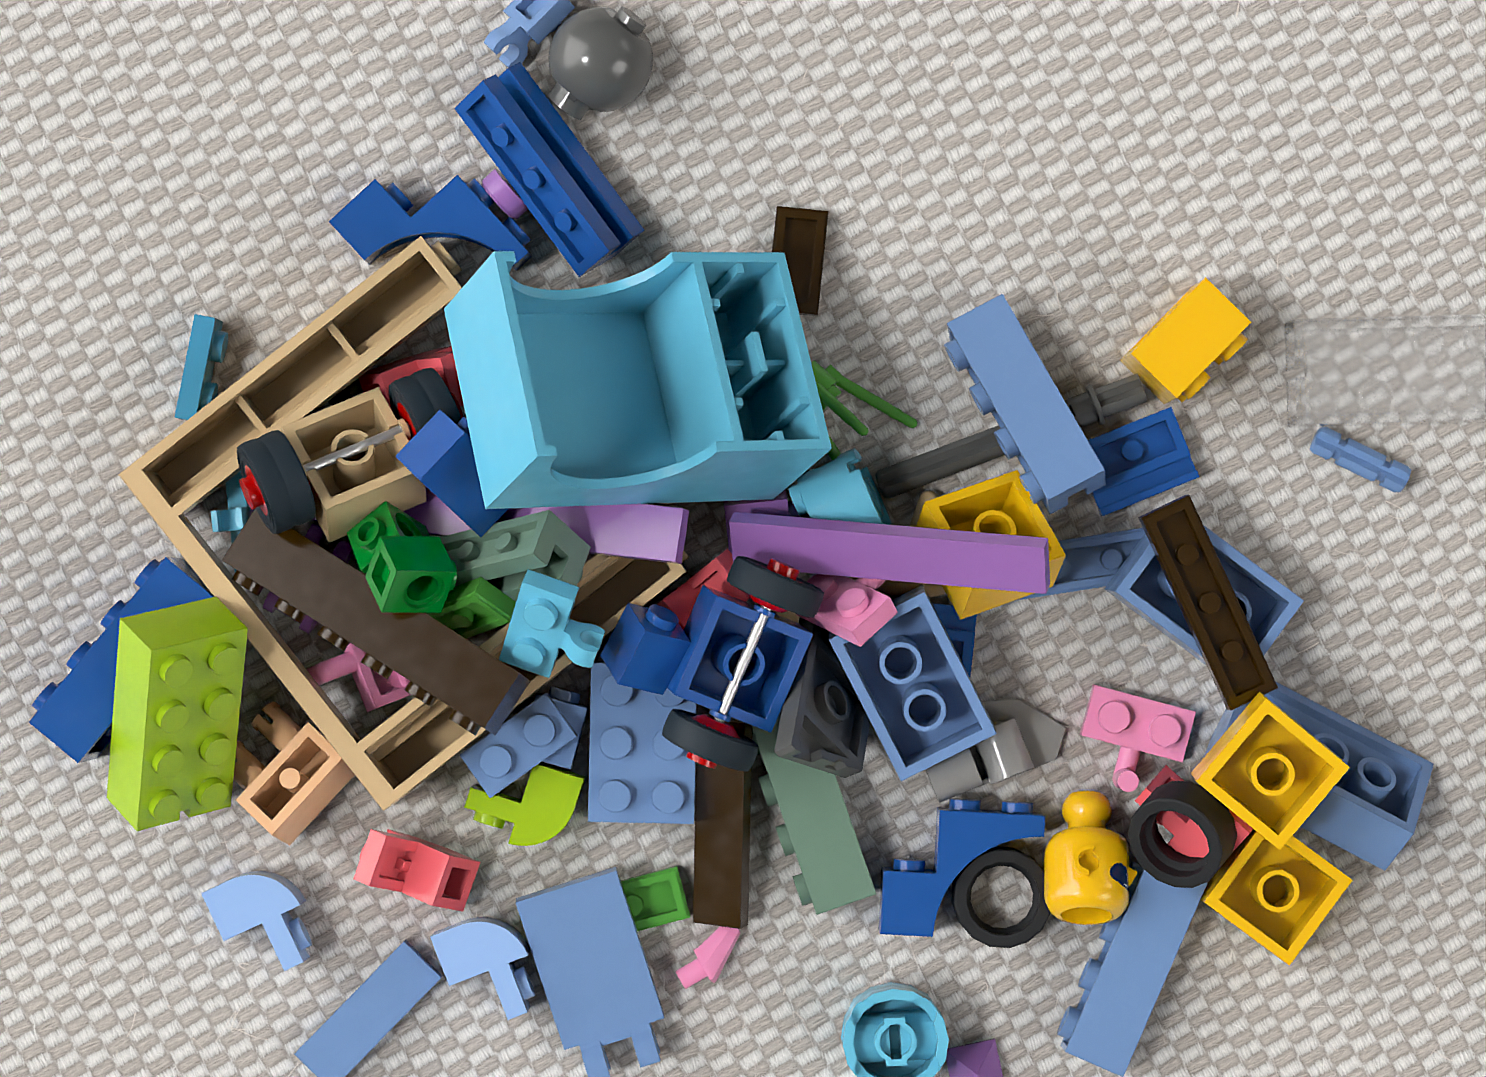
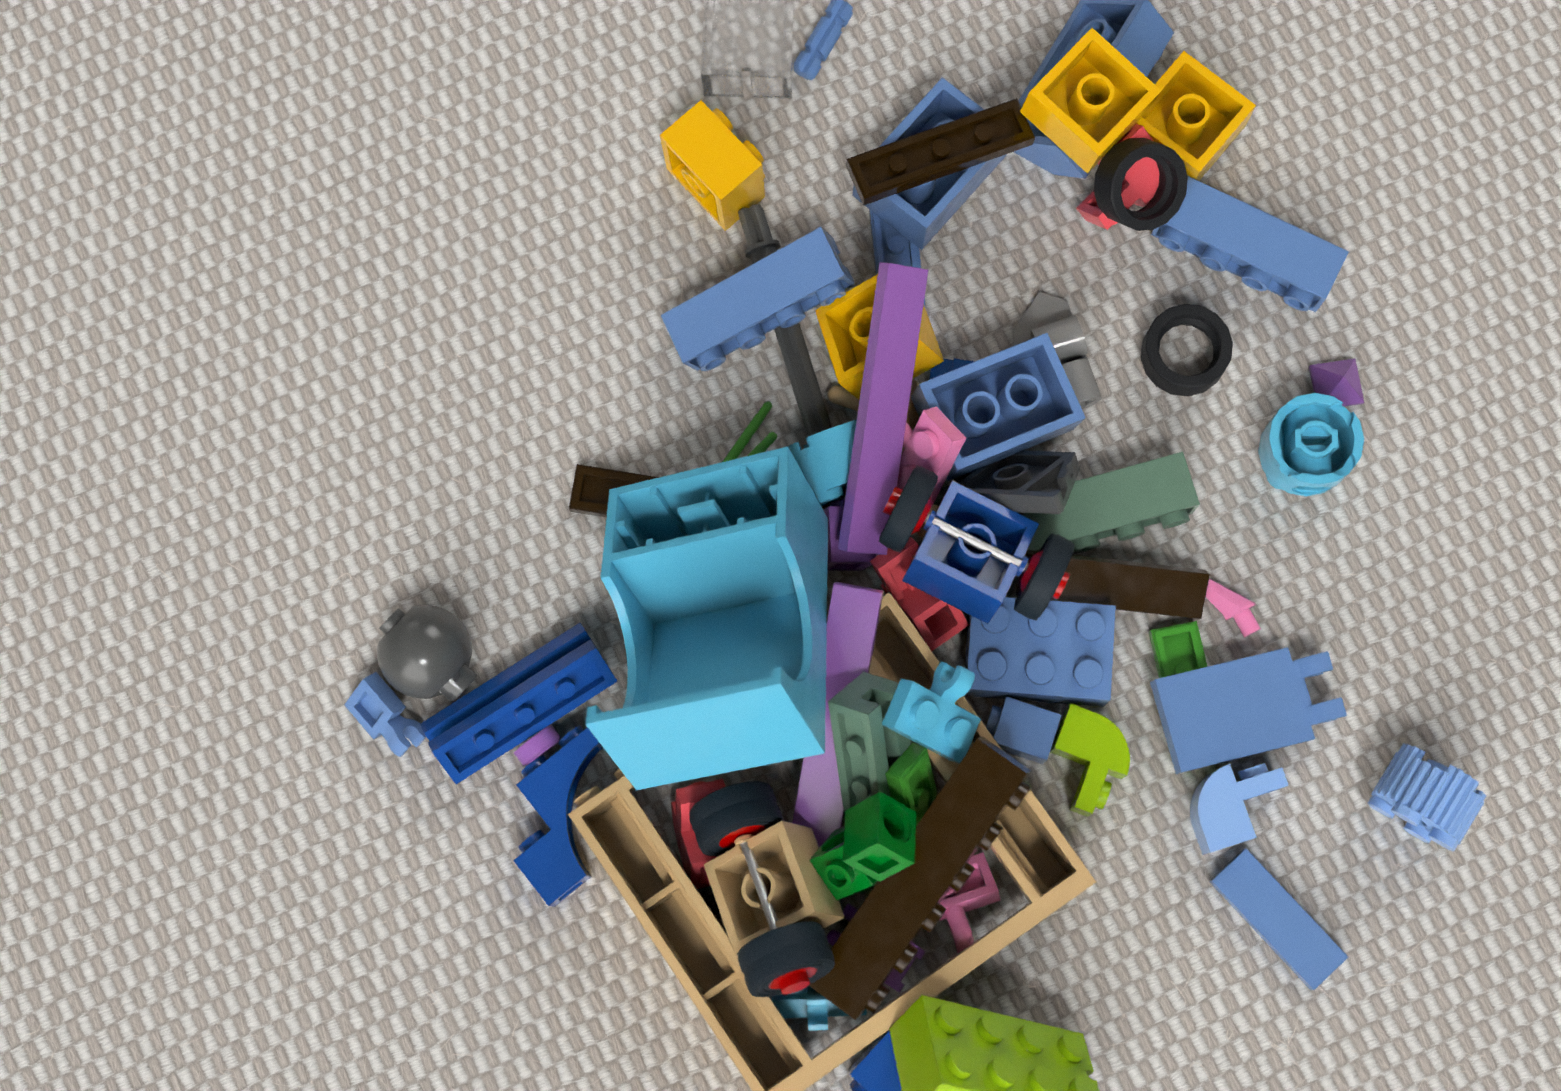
camera: 80 degrees left, 10 degrees down
(205, 348) = (655, 1030): dark azure plate -> none
(263, 899) = (1170, 1014): light blue brick -> none
(296, 782) = (1062, 968): light nougat brick -> none
(416, 869) = (1147, 861): coral brick -> none
(446, 465) = (785, 791): blue brick -> none
(518, 745) = (1035, 747): medium blue plate -> none
(645, 648) = (957, 630): blue brick -> none
(963, 832) = (1134, 382): blue arch -> none
(1087, 864) = (1162, 272): yellow piece -> none
(1136, 726) = (1041, 232): bright pink plate -> none
(1141, 461) = (811, 203): blue plate -> none

